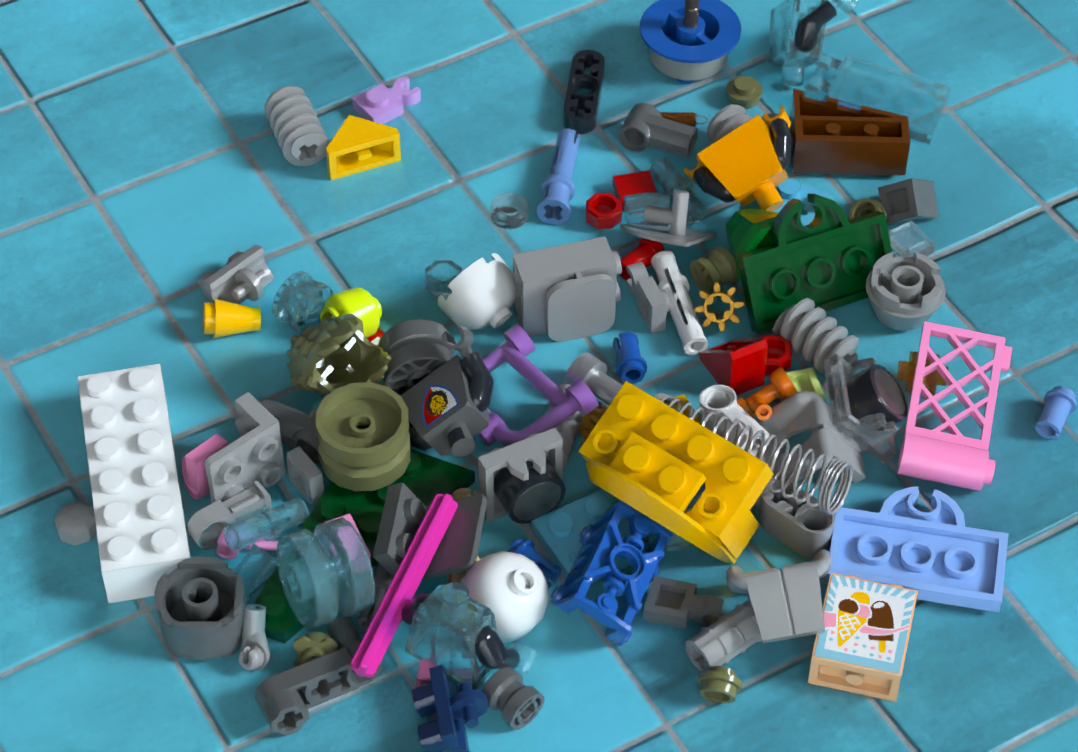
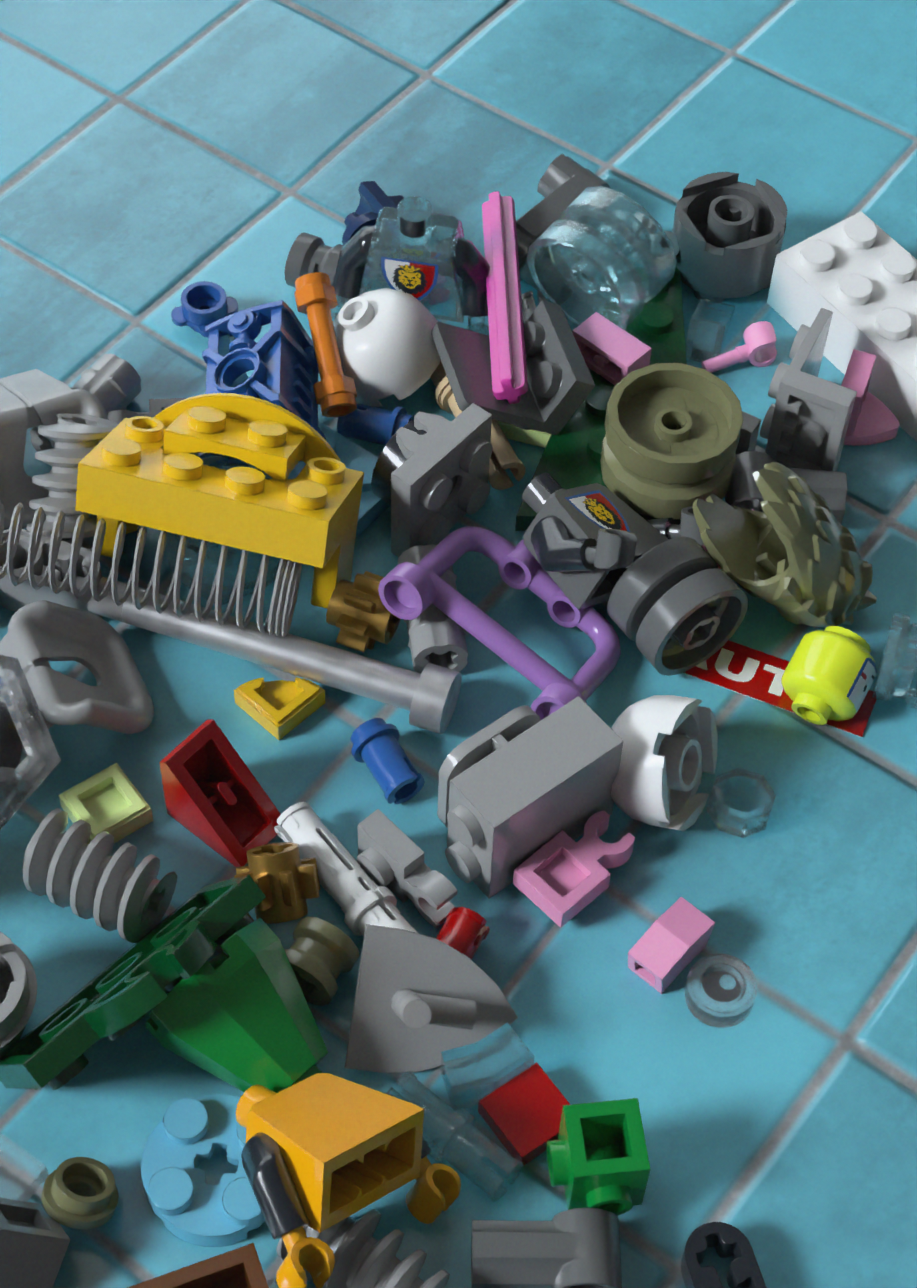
camera: 155 degrees right, 5 degrees up
(225, 513) = (759, 379): light grey piece -> none
(266, 524) = (731, 352): clear light blue pin -> none
(525, 228) = (670, 944): none -> bright pink piece
(547, 602) = (316, 298): none -> orange bar
(558, 186) = (662, 1054): medium blue pin -> none
(603, 211) = (559, 1034): red tile -> none
(615, 145) = (600, 1156): none -> green brick
(617, 691) = (202, 305): none -> blue plate
(719, 684) = (79, 349): olive plate -> none
(723, 402) = (182, 675): white piece -> none
(758, 403) = (128, 763): orange piece -> none
(761, 542) = (73, 438): none -> light grey piece
(778, 353) = (166, 835): red tile -> none

